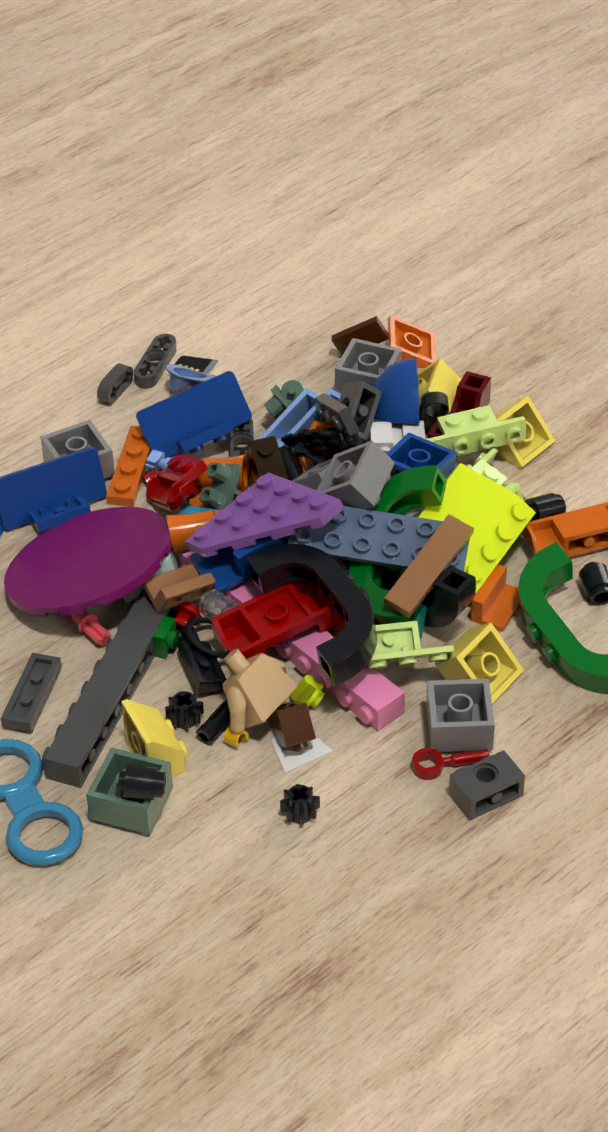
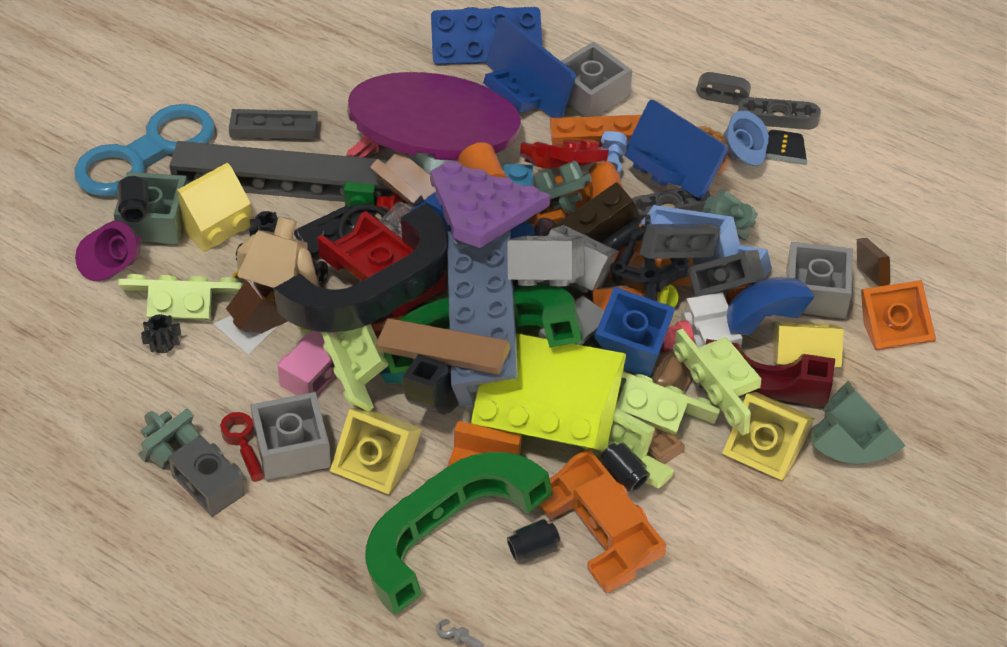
camera: 75 degrees right, 5 degrees up
(179, 832) = (107, 251): none -> magenta piece
(253, 788) = (180, 298): none -> yellowish green bracket
(429, 808) = (157, 445): none -> sand green hips
(430, 412) = (757, 341): pearl dark grey piece -> none
(530, 381) = (854, 430): none -> sand green brick

